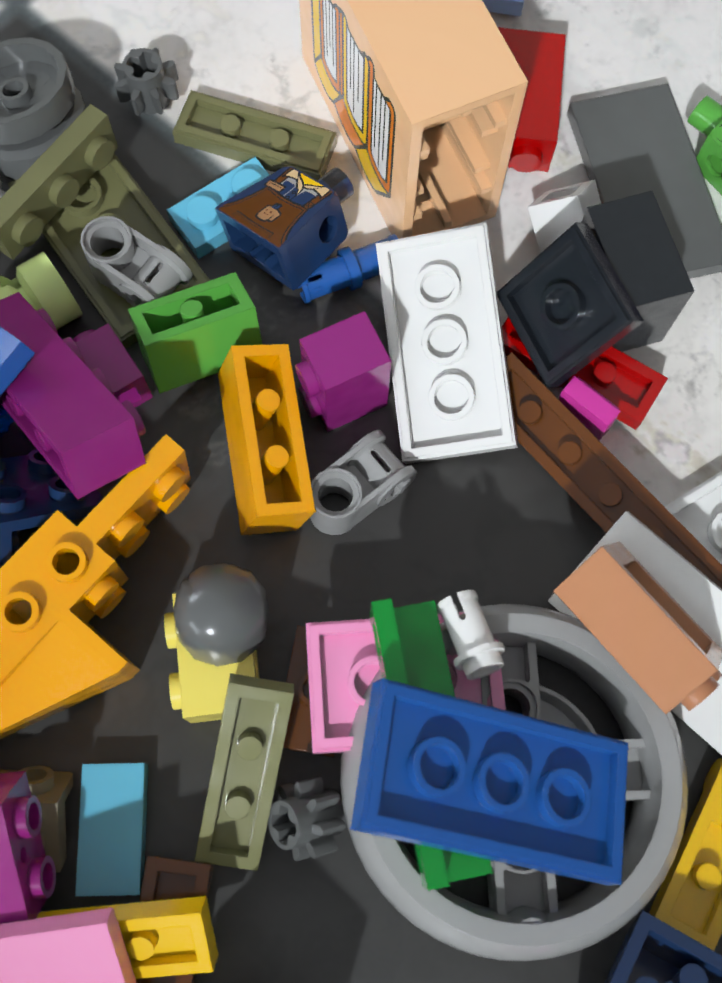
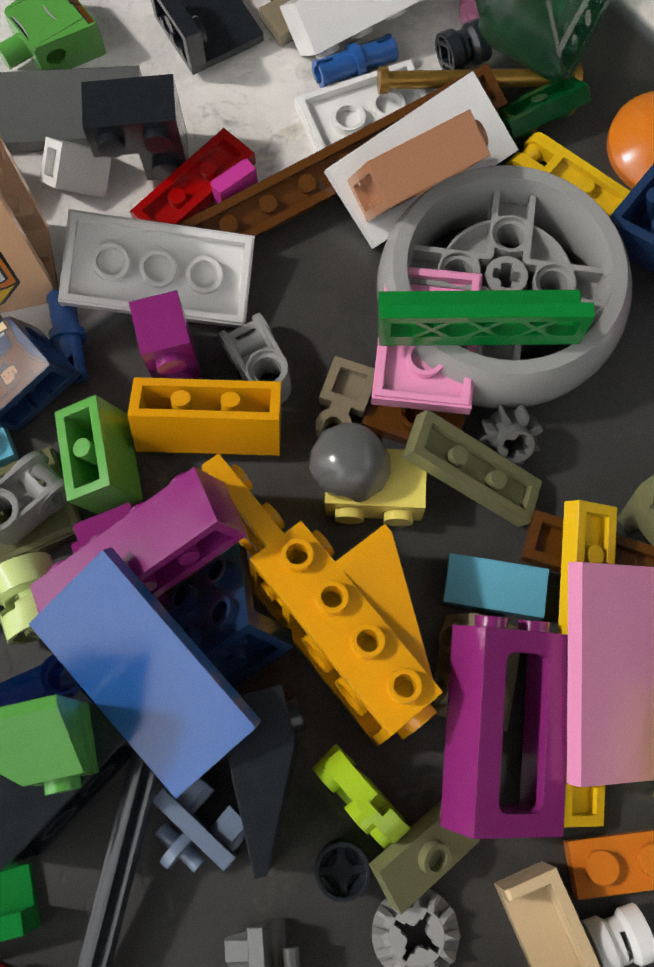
camera: 75 degrees left, 0 degrees up
(333, 596) = (345, 392): none -> dark tan plate
(472, 639) = (409, 272): white pin -> none
(491, 784) = (523, 268): blue tile -> none
(568, 305) = (156, 166): black plate -> none

